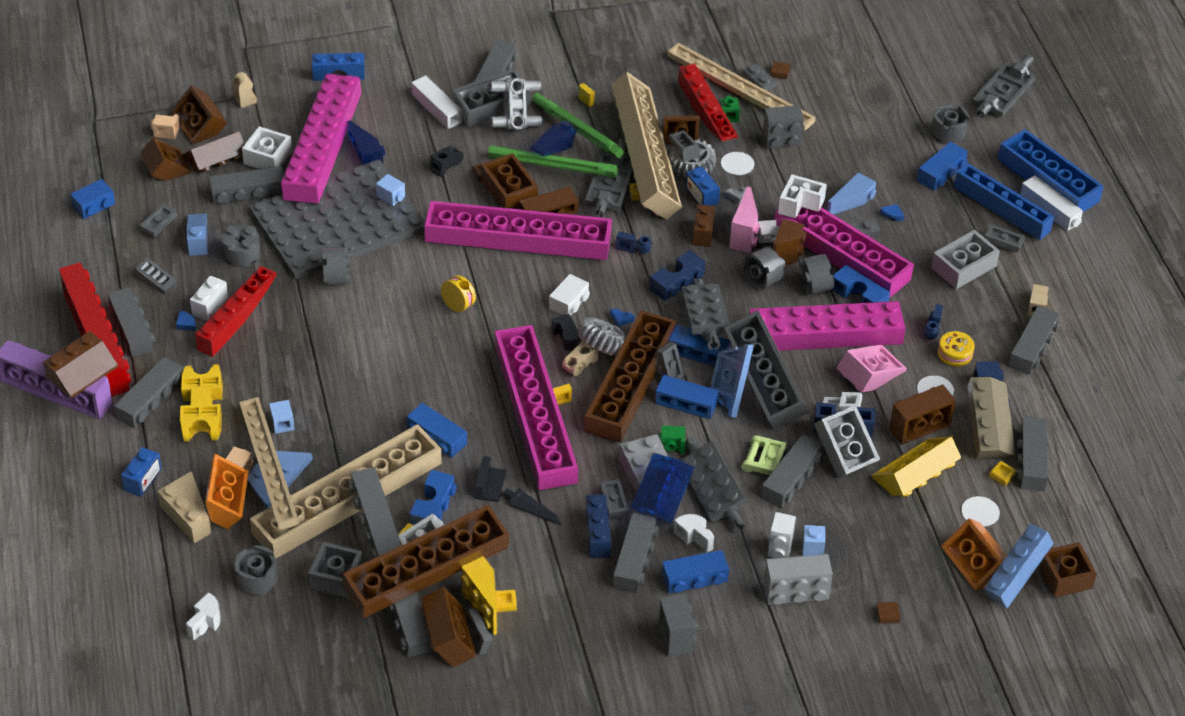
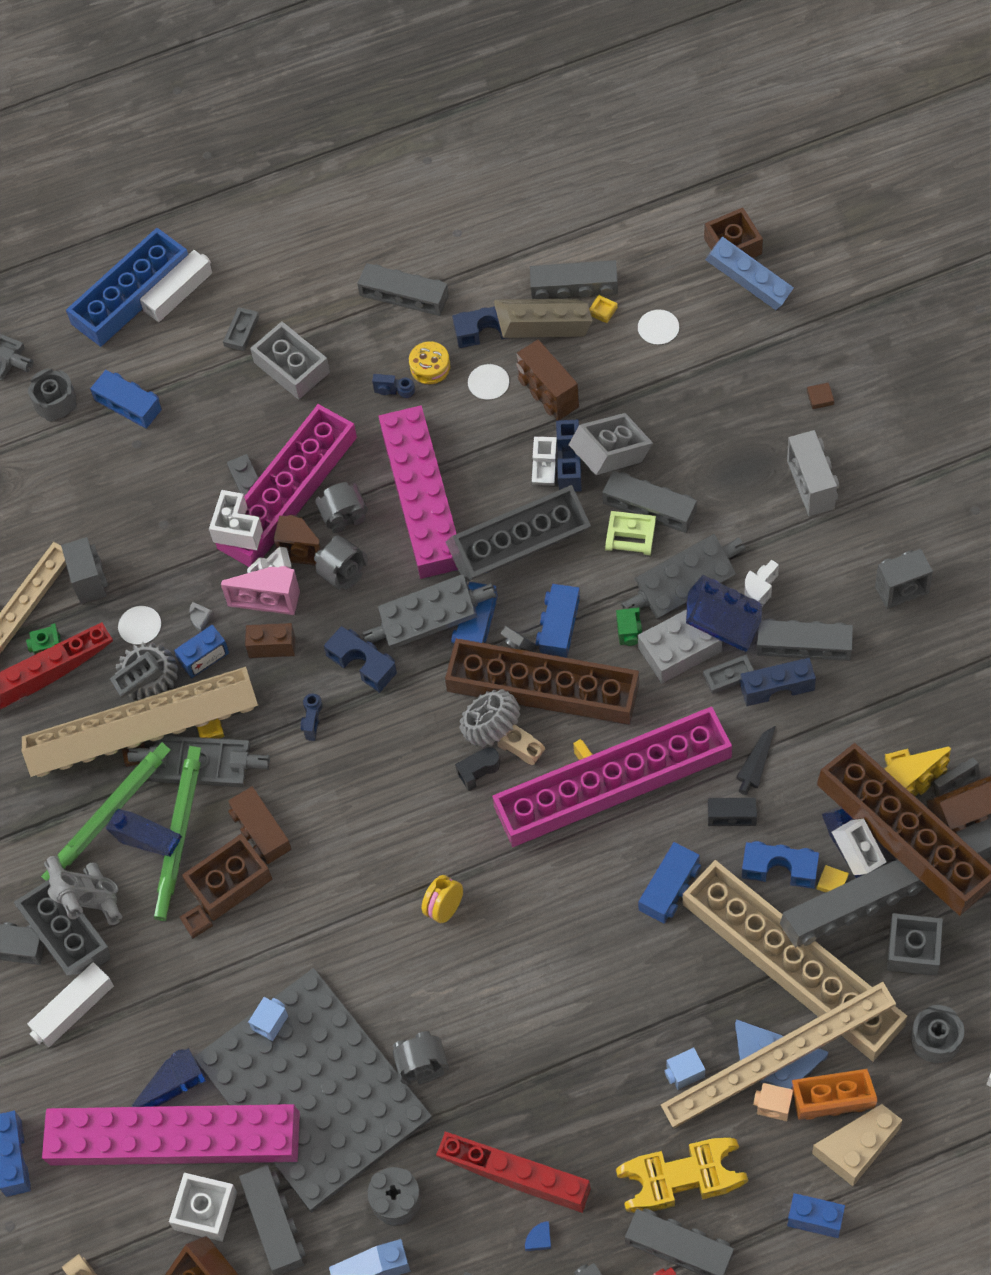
camera: 90 degrees left, 15 degrees up
(209, 298) = (499, 1213): white brick -> none
(445, 159) = (186, 969): black leg -> none
(518, 230) = (314, 852): dark pink brick -> none
(569, 295) = (416, 774): white brick -> none
(586, 95) = (36, 816): yellow tile -> none
(621, 317) = (436, 714): blue tile -> none
(675, 124) = (93, 687): reddish brown slope -> none
(695, 571) = (817, 577): blue brick -> none
(730, 376) = (532, 569): medium blue wing -> none
(781, 535) = (757, 494): white brick -> none
(813, 540) = (747, 468): light blue brick -> none
(850, 281) = (361, 449): blue arch -> none
(853, 194) = (183, 483): medium blue slope -> none
(870, 367) = (476, 441): bright pink slope -> none
(892, 211) = (210, 445): blue tile -> none
(917, 466) = (614, 383): yellow slope -> none
(974, 553) = (728, 320): orange slope -> none
(1003, 201) = (185, 330): blue brick -> none
(1038, 298) = (338, 290): tan leg -> none

